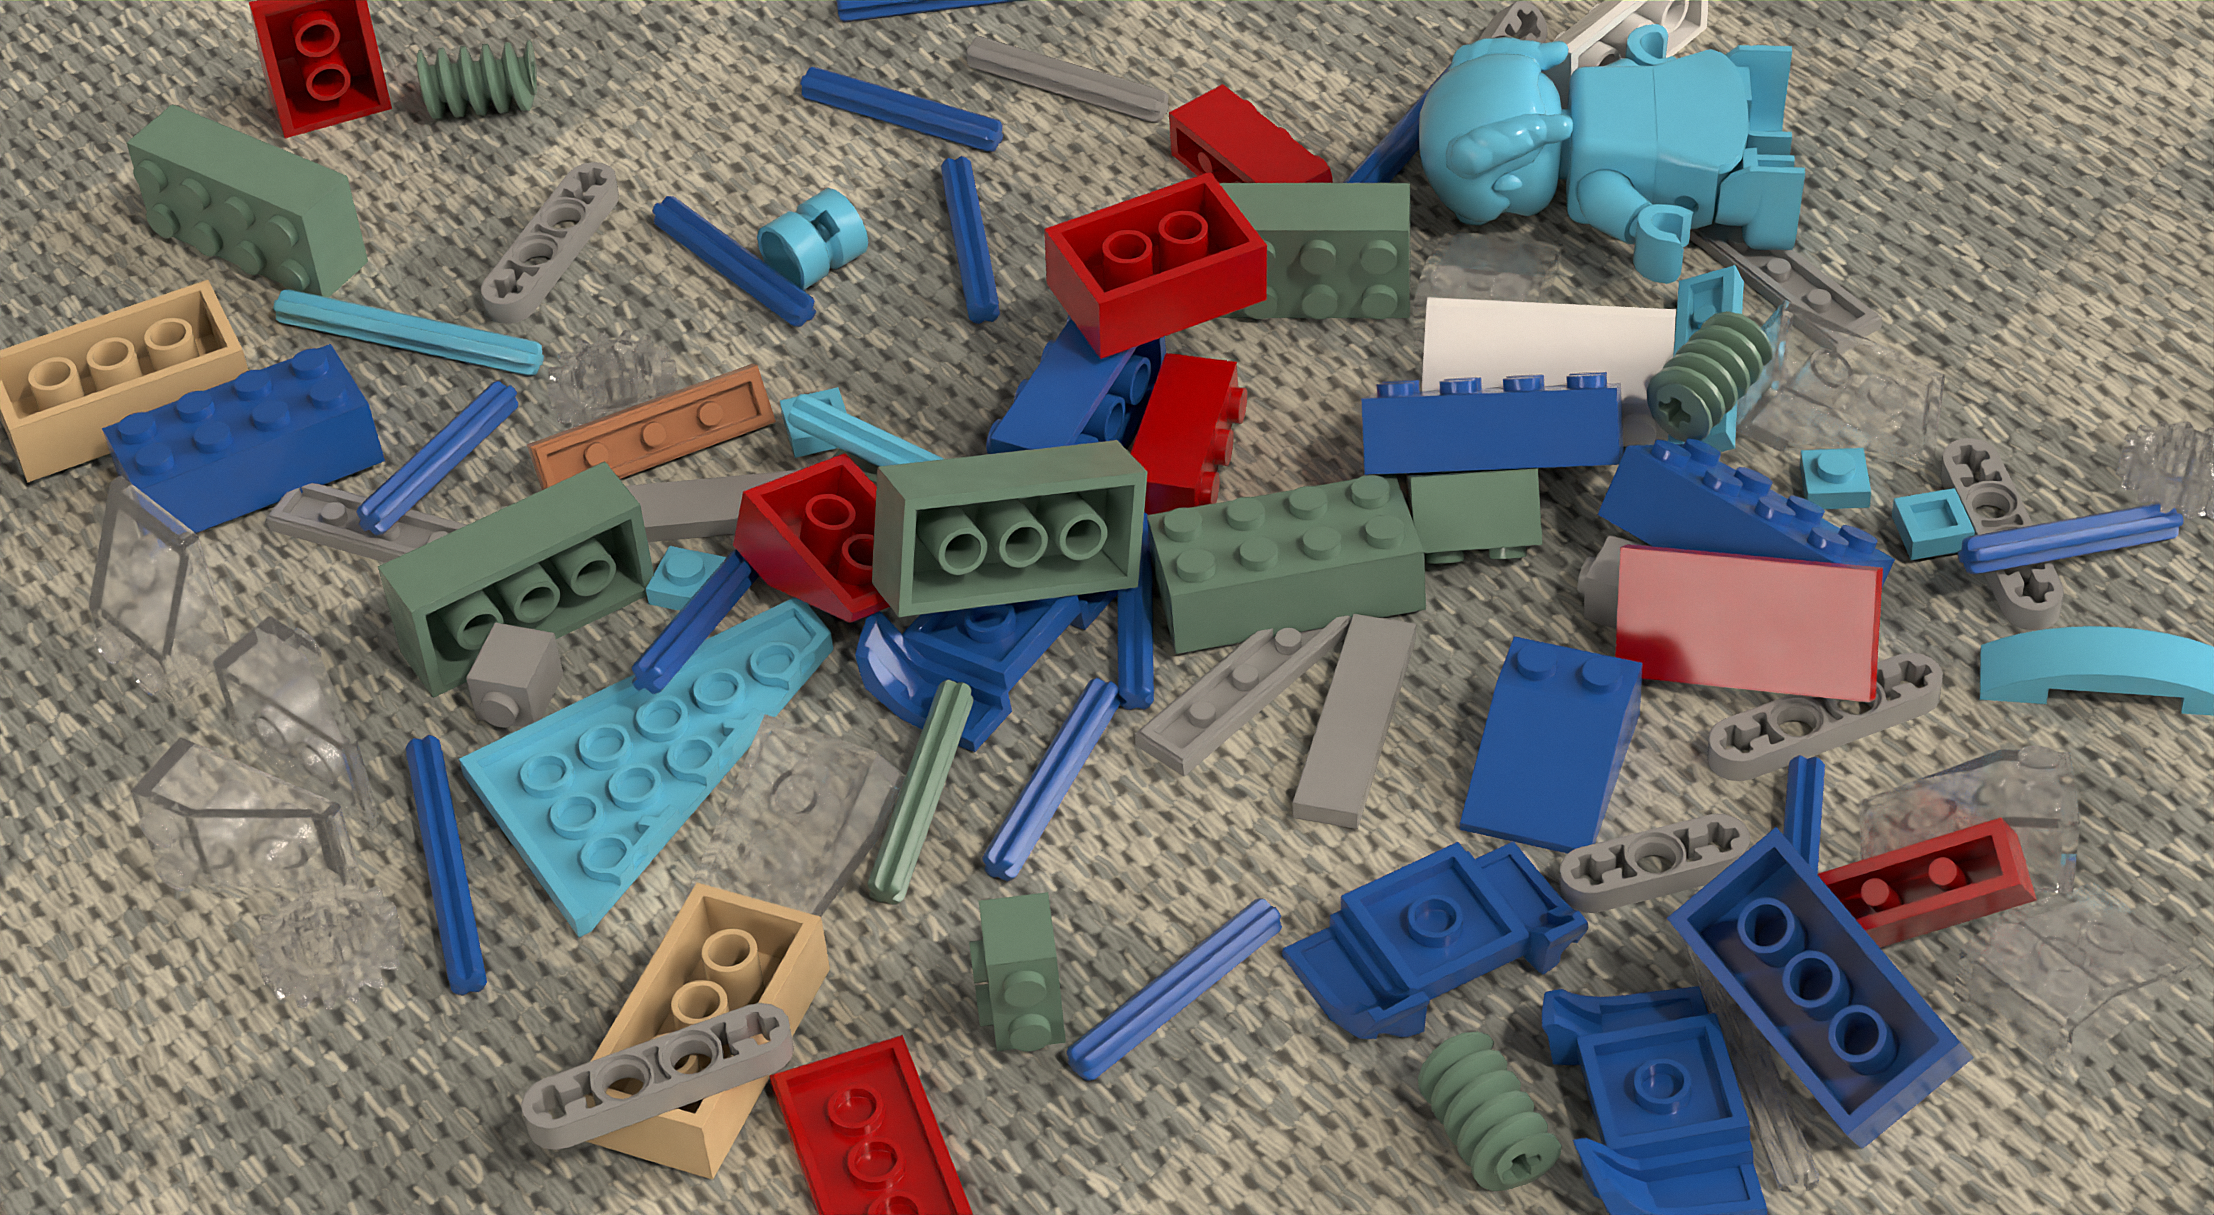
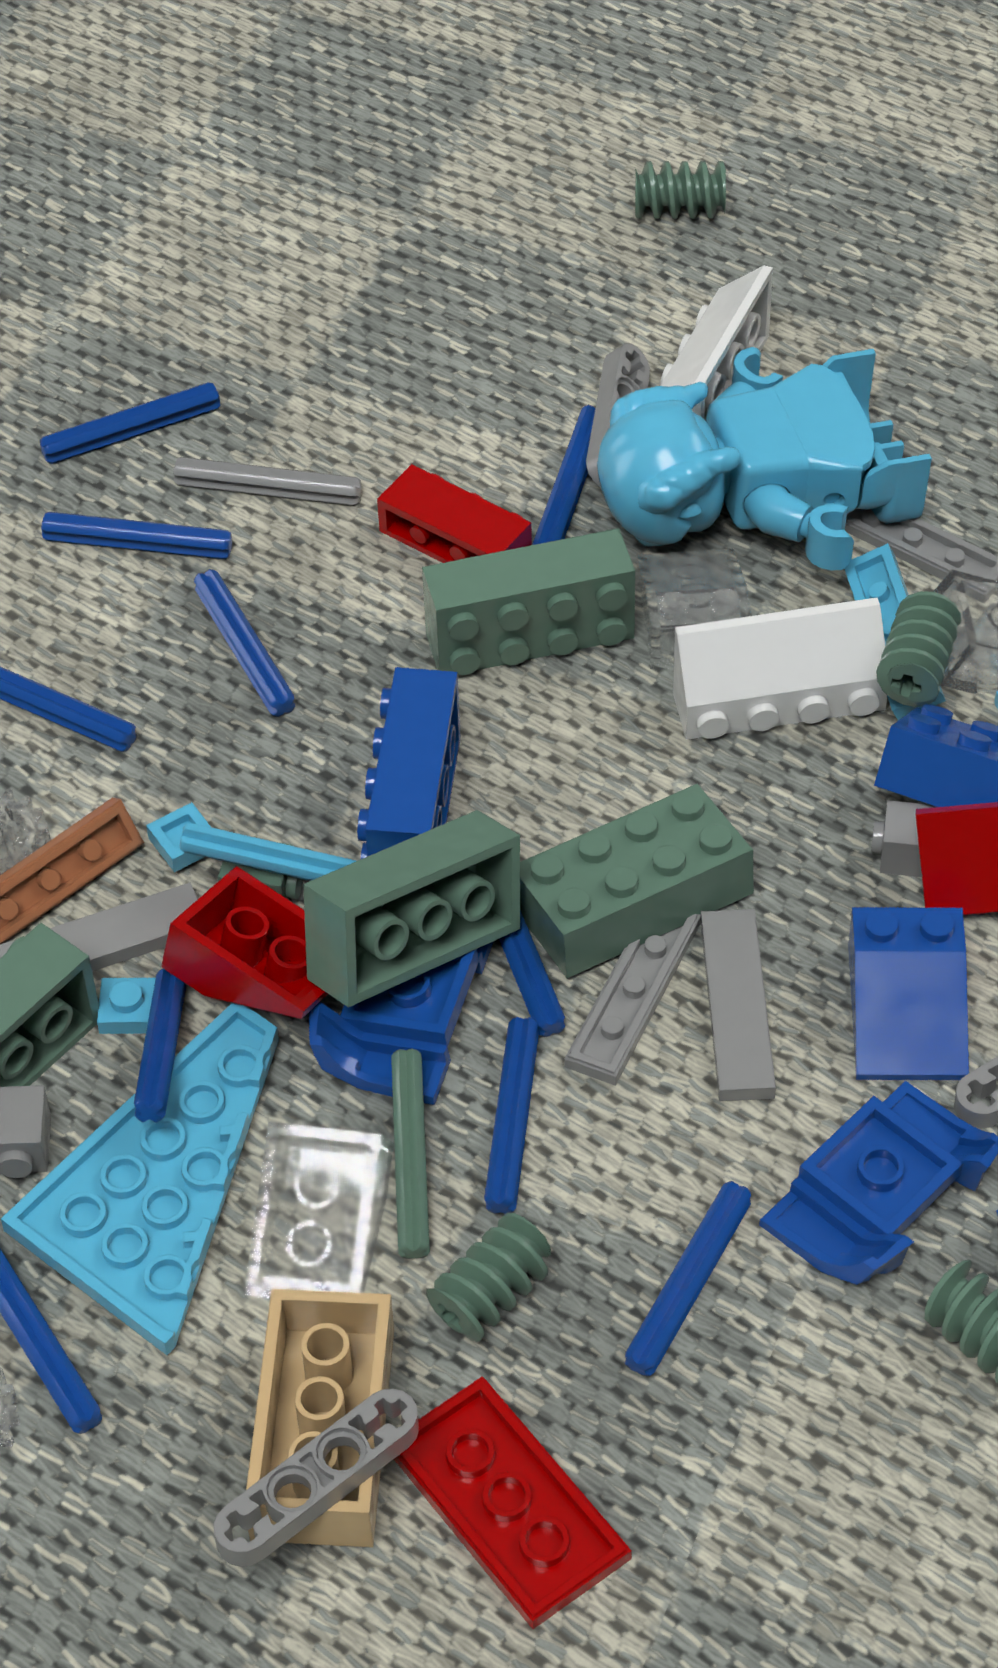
camera: 20 degrees left, 5 degrees up
(814, 238) = (115, 670): medium azure wheel -> none
(936, 934) = (489, 1275): none -> sand green piece
(1020, 972) = (572, 1300): sand green brick -> none
(1155, 264) = (453, 648): red brick -> none
(1188, 431) = (501, 775): red brick -> none
(1475, 512) = (772, 798): sand green brick -> none
(1492, 426) = (764, 726): blue brick -> none

